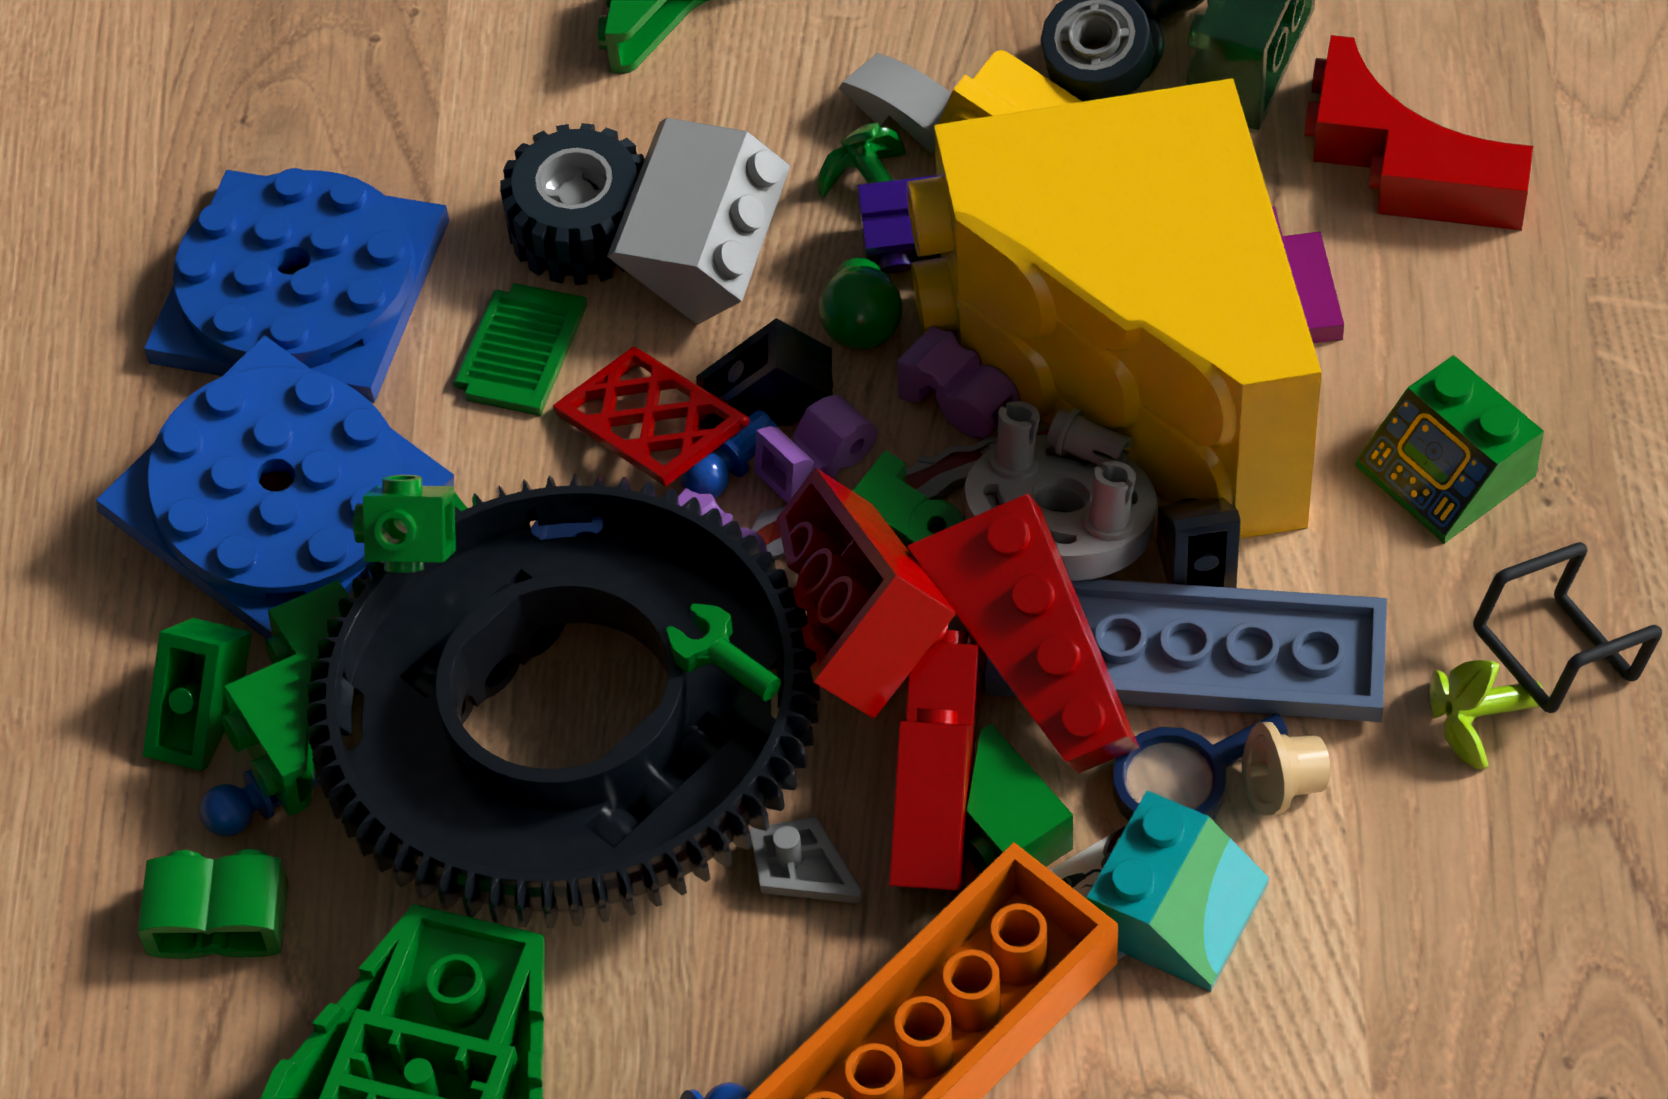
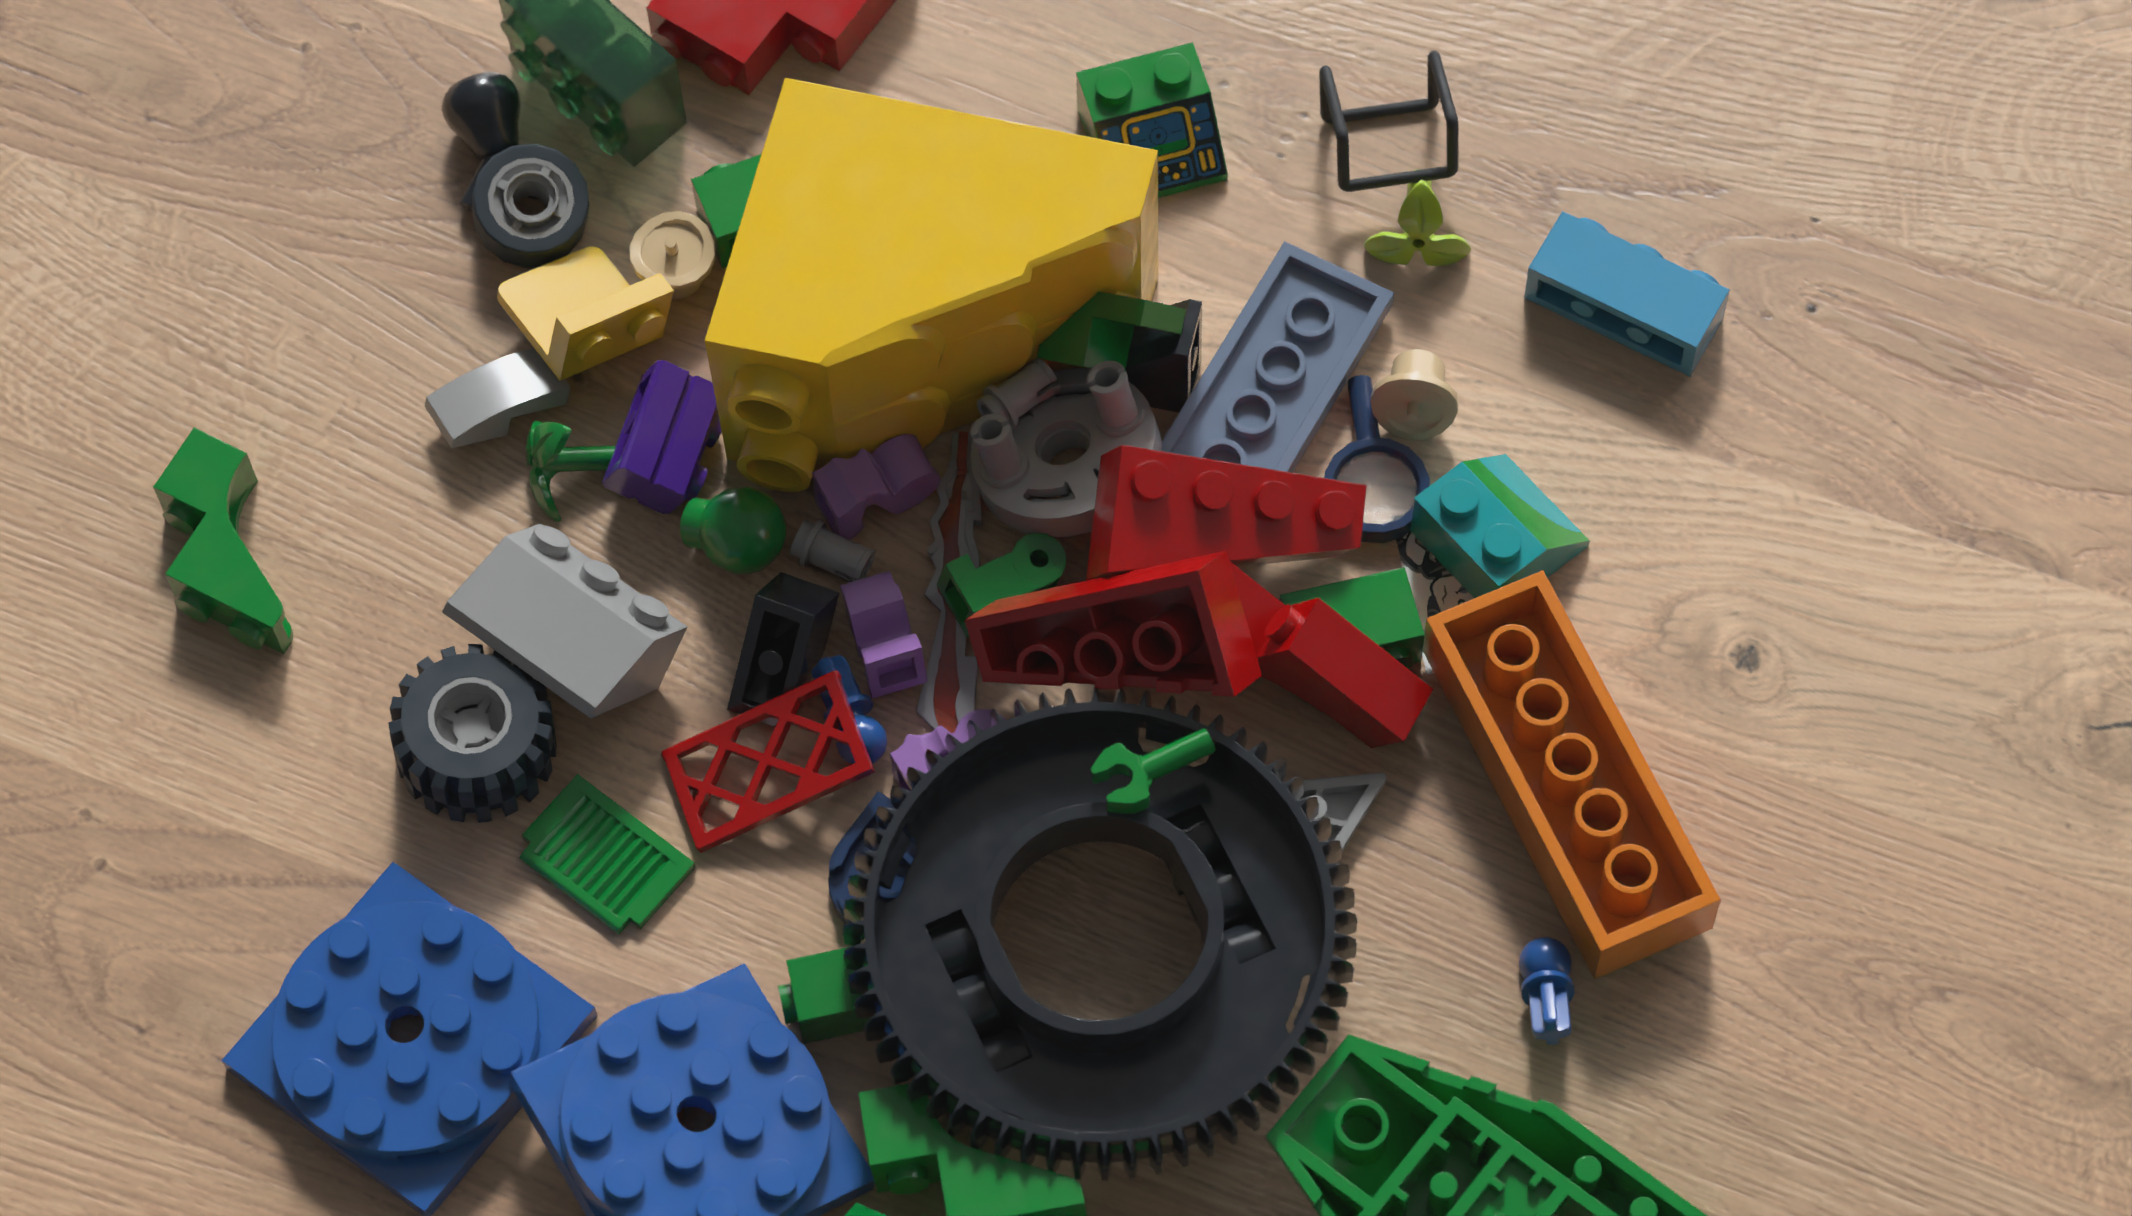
camera: 70 degrees left, 10 degrees up
(424, 511) = (888, 980): green brick -> none
(878, 384) = (831, 552): none -> light grey pin
(1173, 466) = (1105, 328): none -> green slope
(1507, 913) = (1626, 292): none -> dark azure brick

